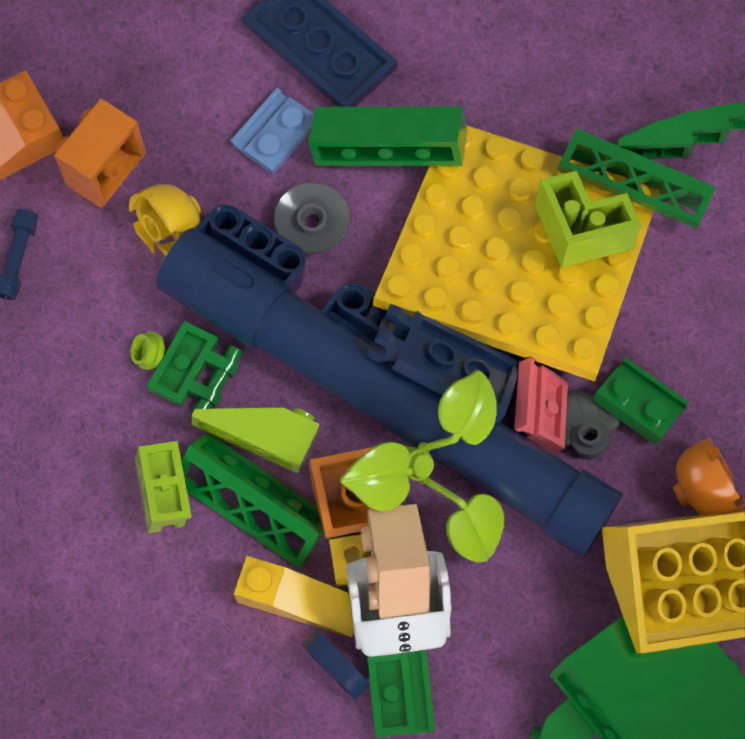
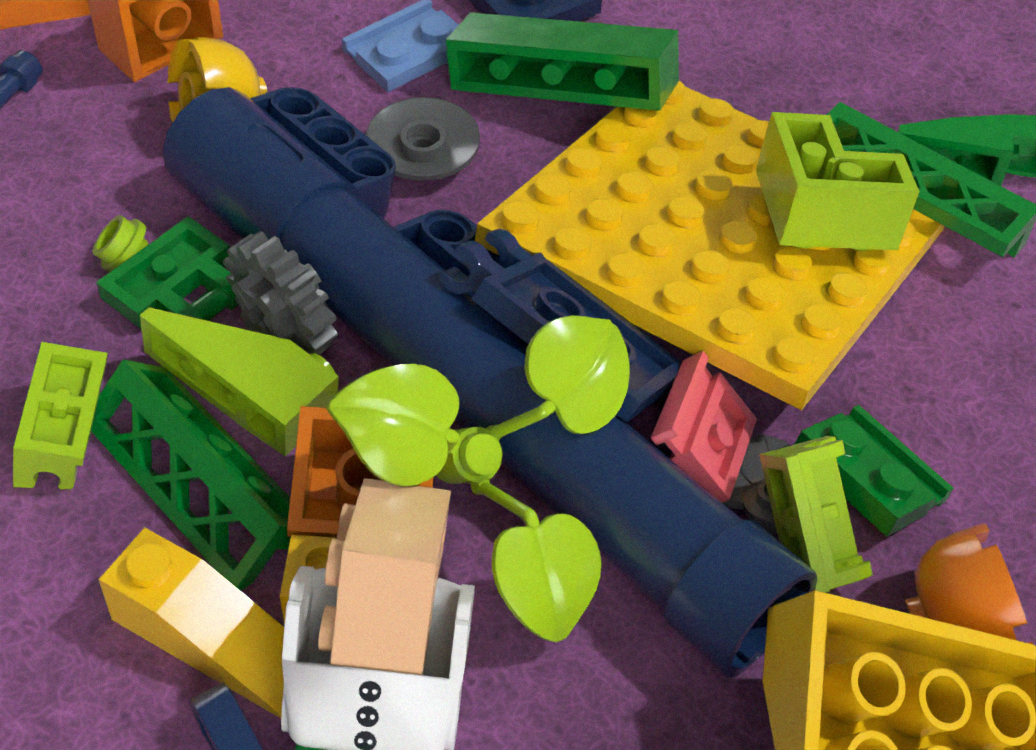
camera: 10 degrees right, 20 degrees down
(267, 377) = (279, 293): none -> dark grey gear
(614, 448) = (813, 510): none -> lime hinge

